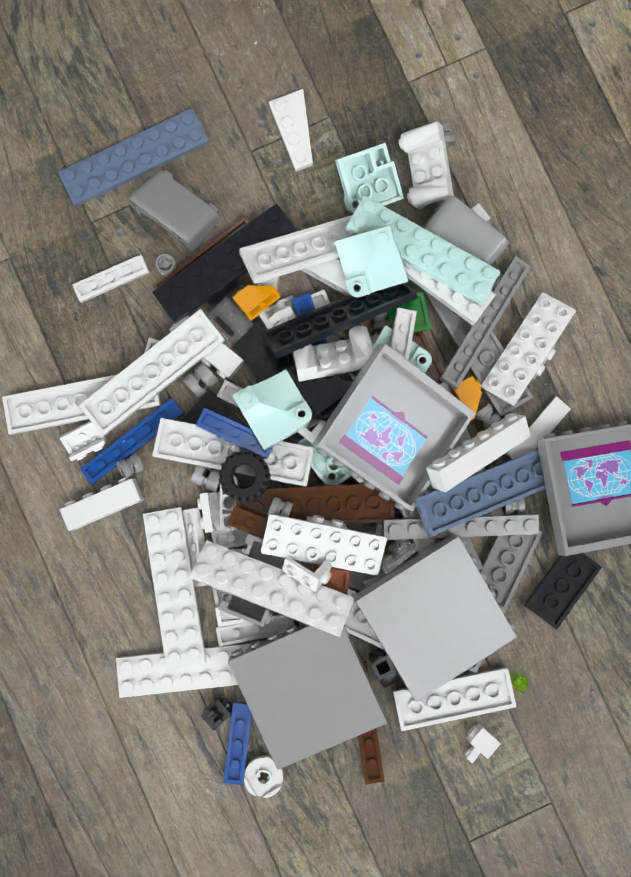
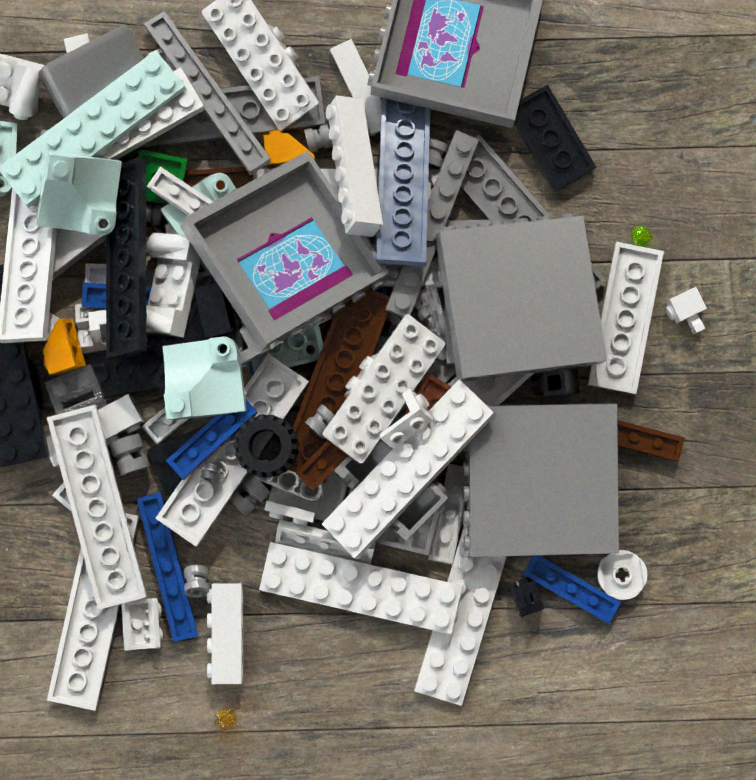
camera: 65 degrees left, 0 degrees up
(41, 529) = (225, 718): none -> clear yellow plate
(209, 444) = (211, 473): none -> flat silver plate

